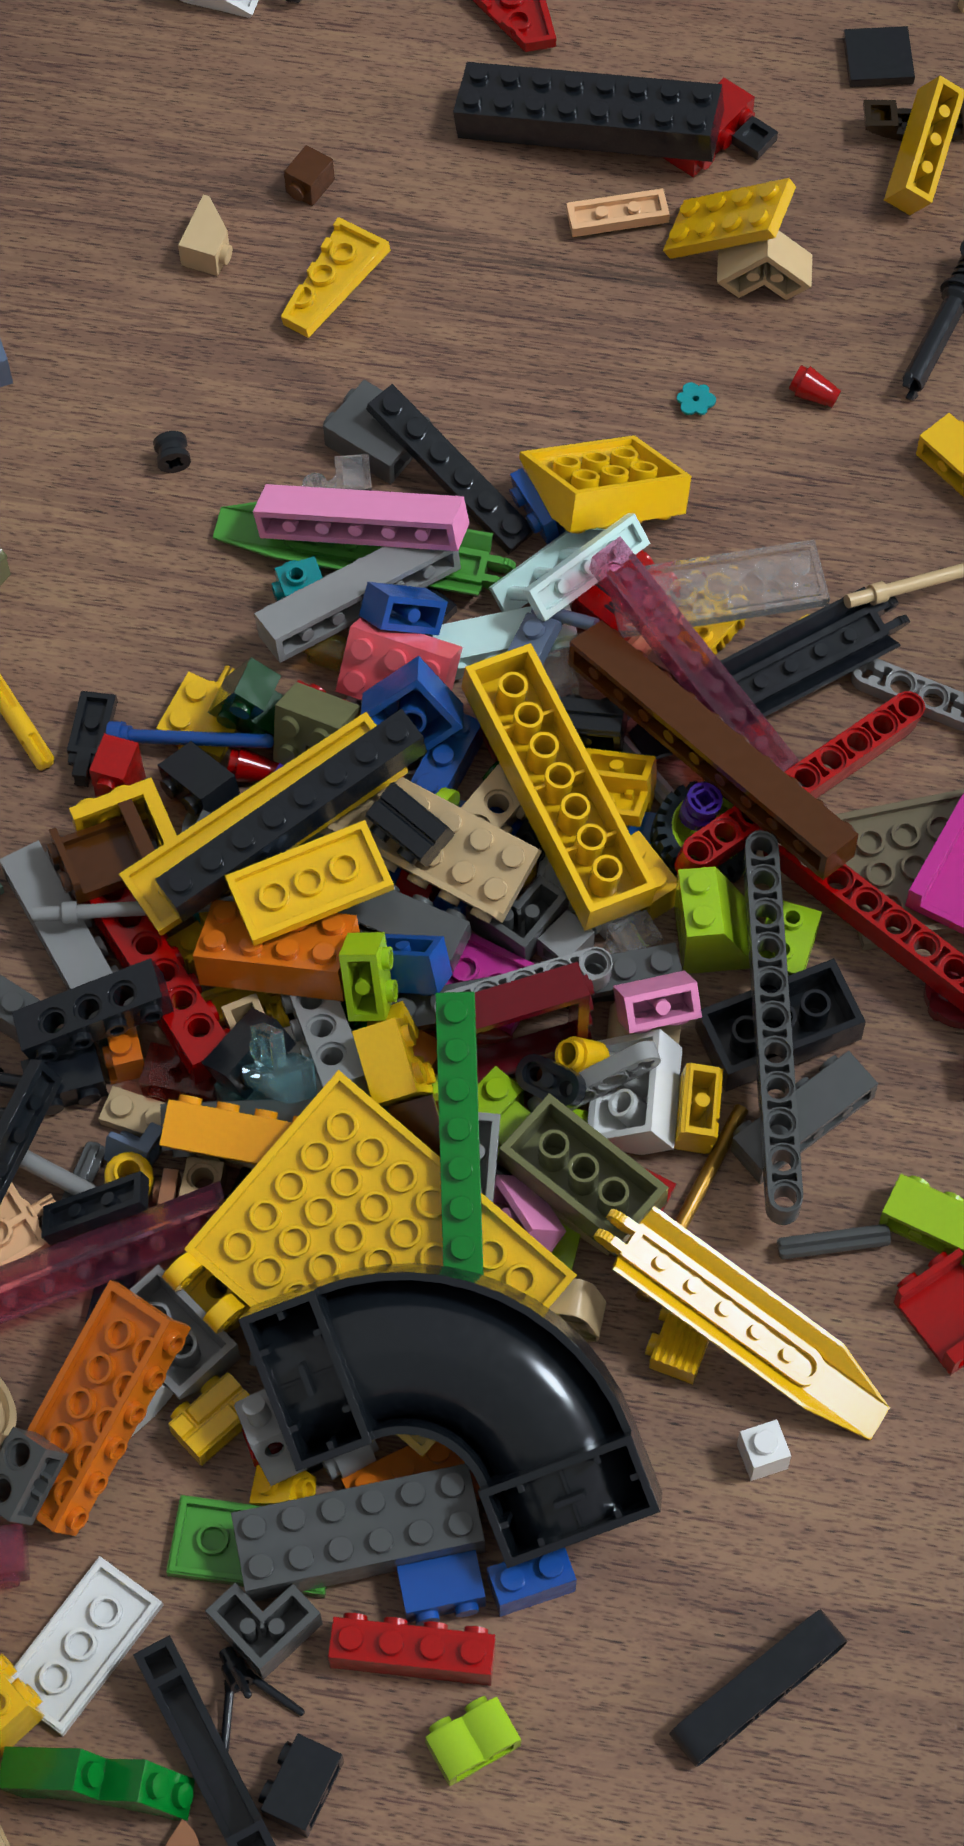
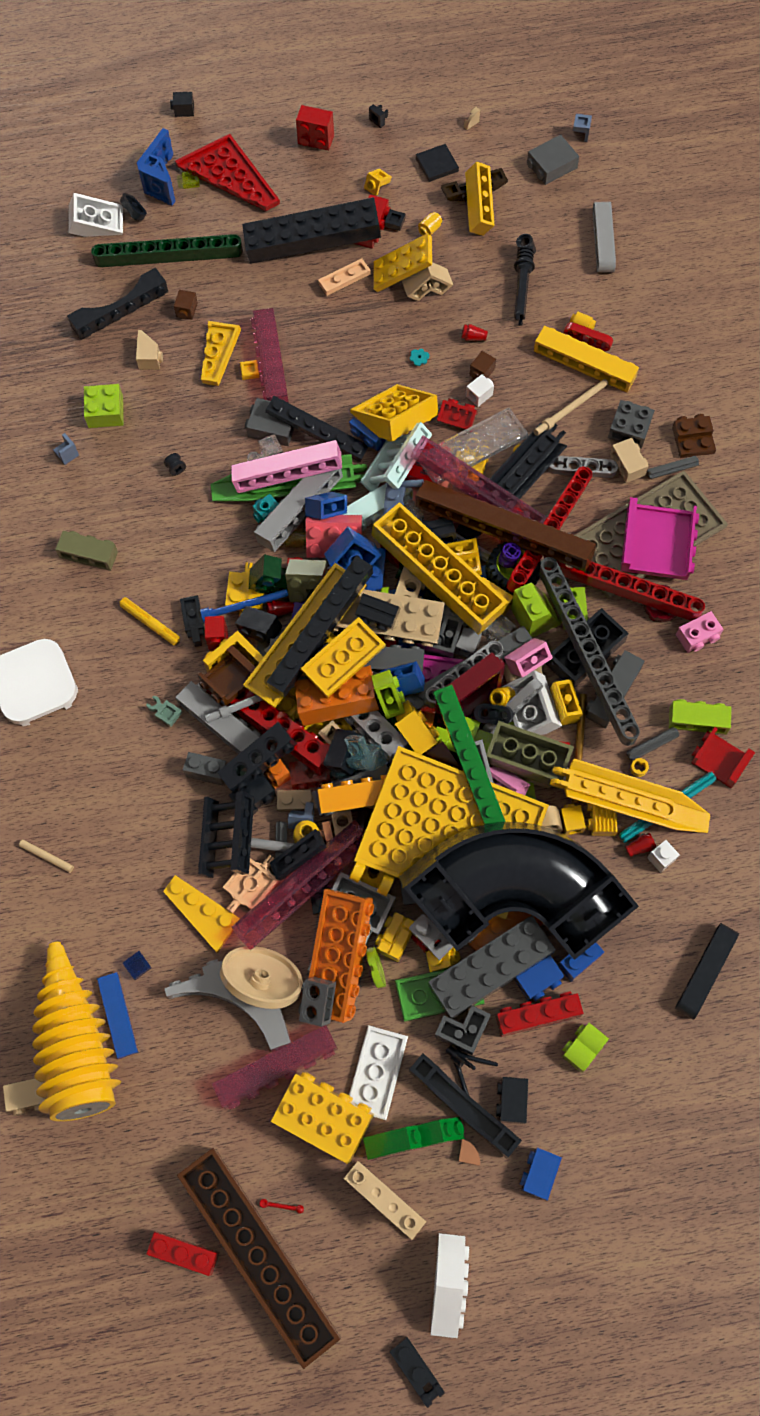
camera: 20 degrees left, 5 degrees up
(89, 309) = (103, 406): none -> lime brick
(130, 152) = (90, 320): none -> black arch
(154, 1462) = (376, 967): none -> lime tile
(317, 70) = (167, 250): none -> dark green beam
(376, 326) = (249, 370): none -> yellow tile
(422, 311) = (269, 353): none -> clear pink brick
(622, 1325) = (572, 819): none -> yellow brick
(718, 524) = (456, 414): none -> red bracket
(731, 1415) = (642, 844): none -> red cone
(750, 54) = (375, 180): none -> yellow bracket
(781, 493) = (480, 390): none -> white brick
(782, 1282) = (638, 773): none -> yellow bush
(804, 453) = (483, 364): none -> reddish brown brick
(815, 165) = (430, 224): none -> yellow brick
(864, 1353) = (689, 791): none -> teal axle

